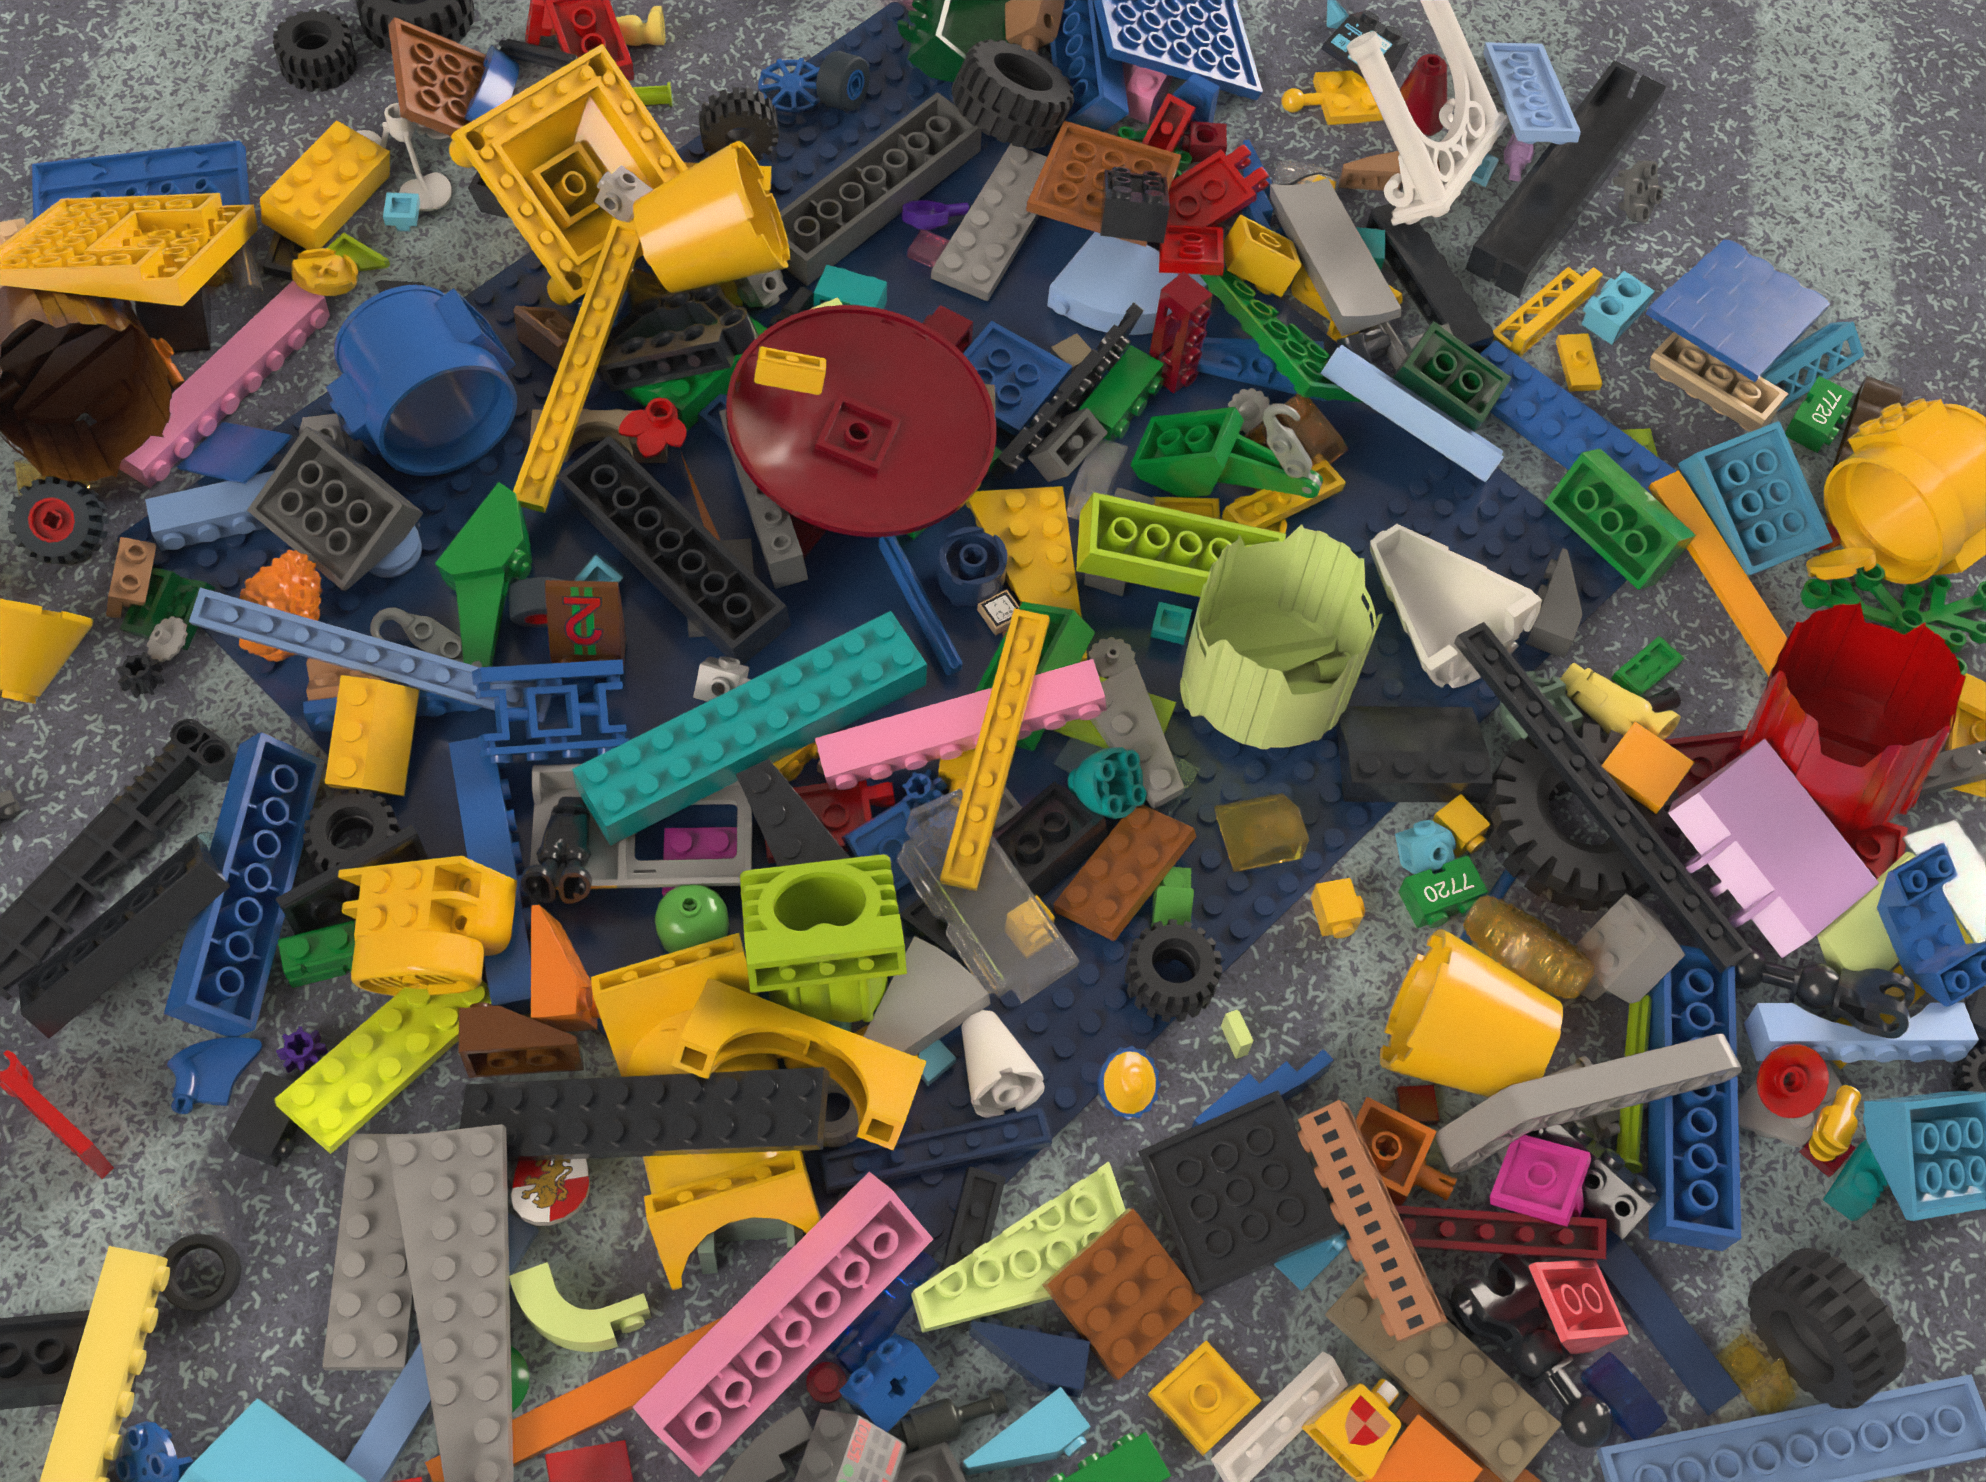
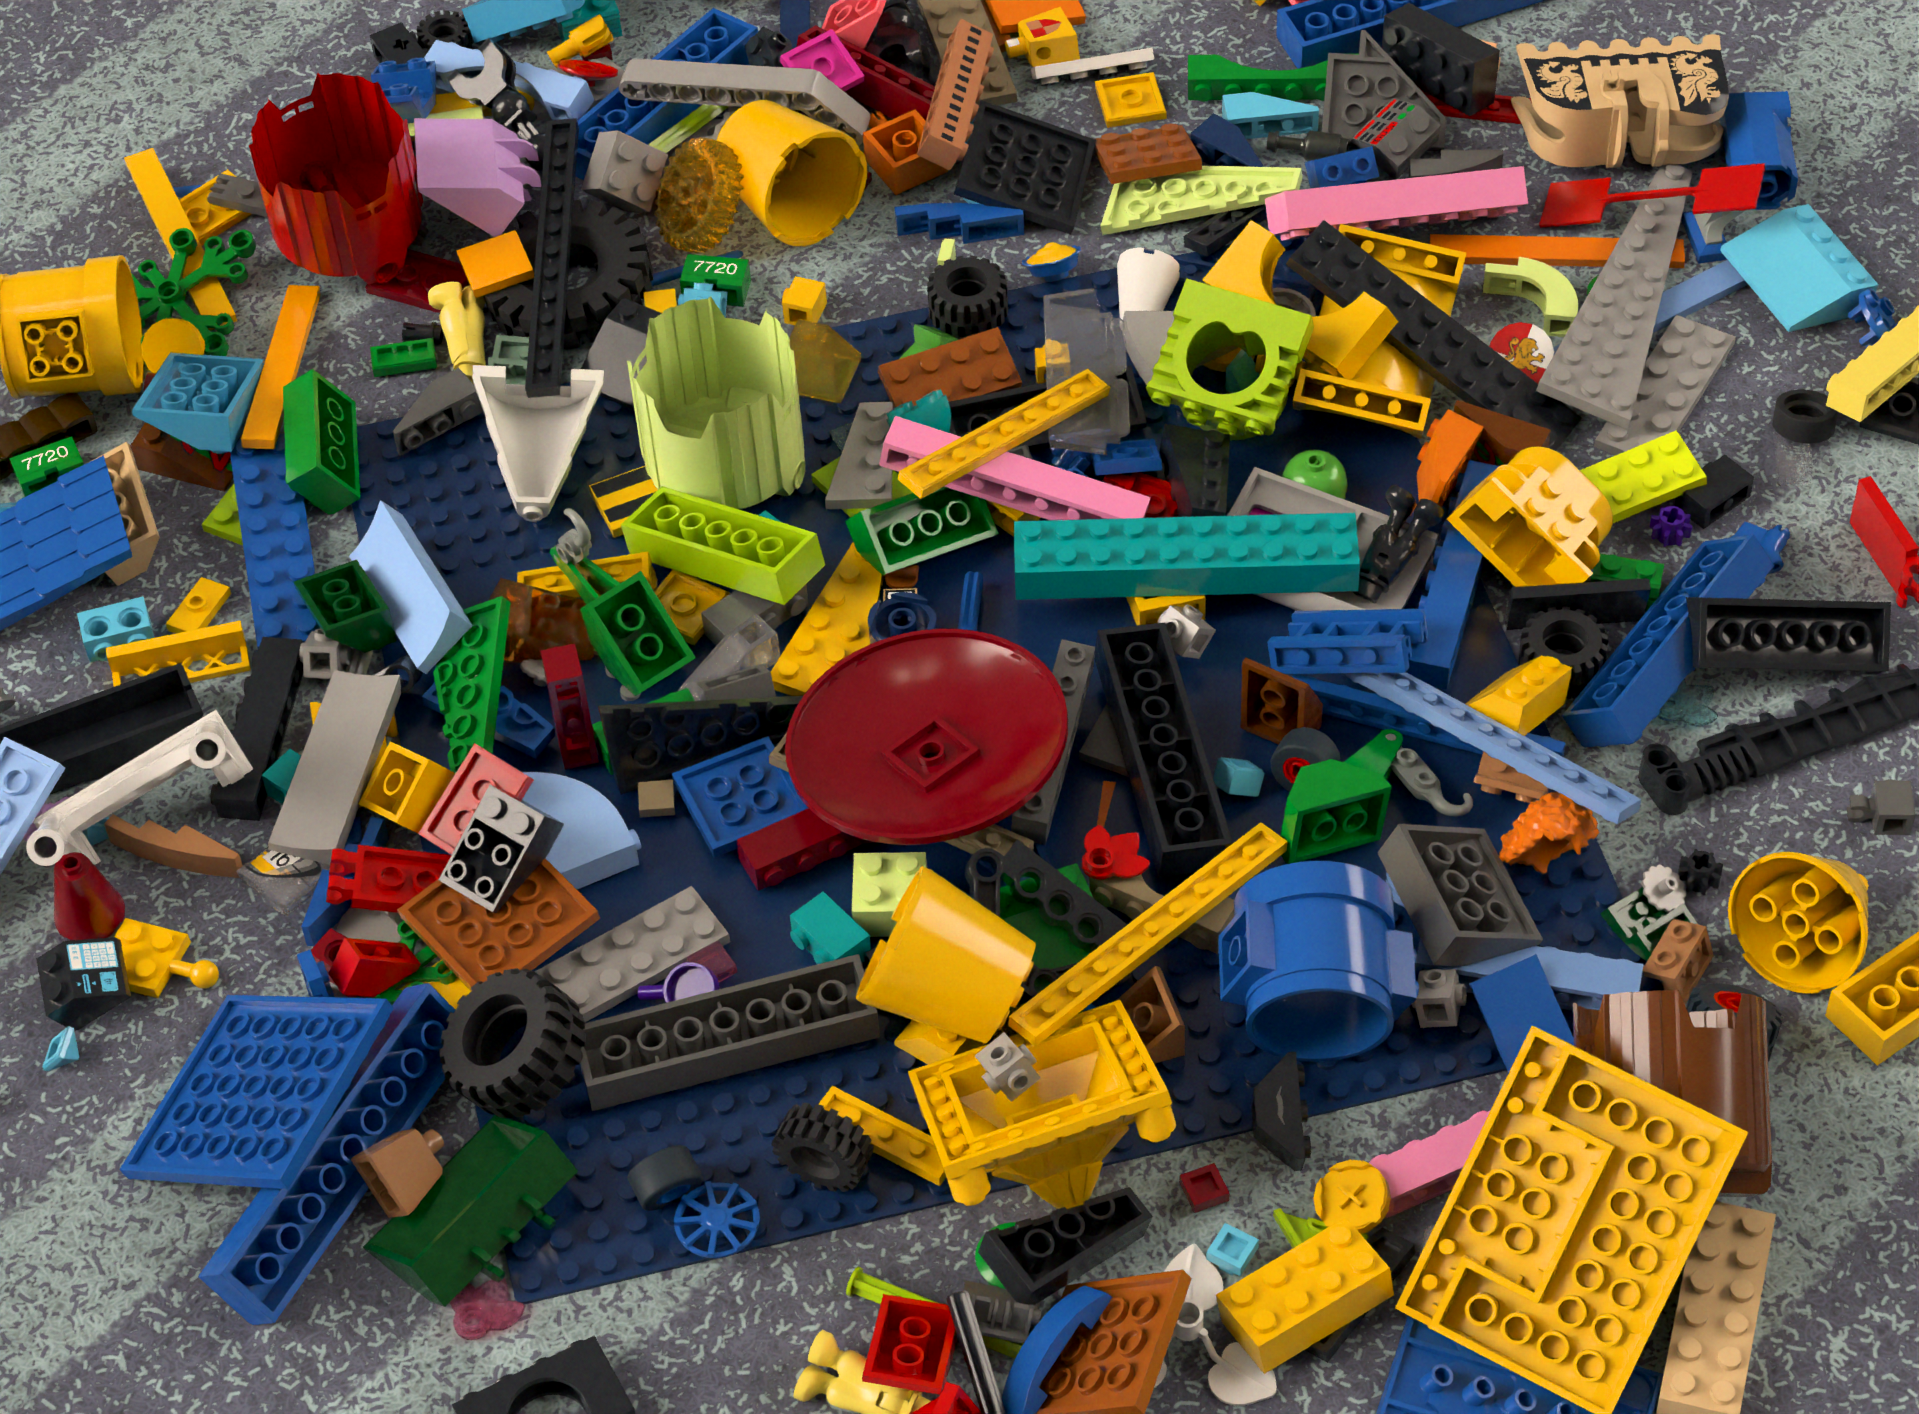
camera: 140 degrees left, 10 degrees down
(449, 252) = (1204, 1188): none -> dark red plate
(790, 370) = (967, 780): yellow slope -> none
(1111, 656) = (833, 535): light grey piece -> none

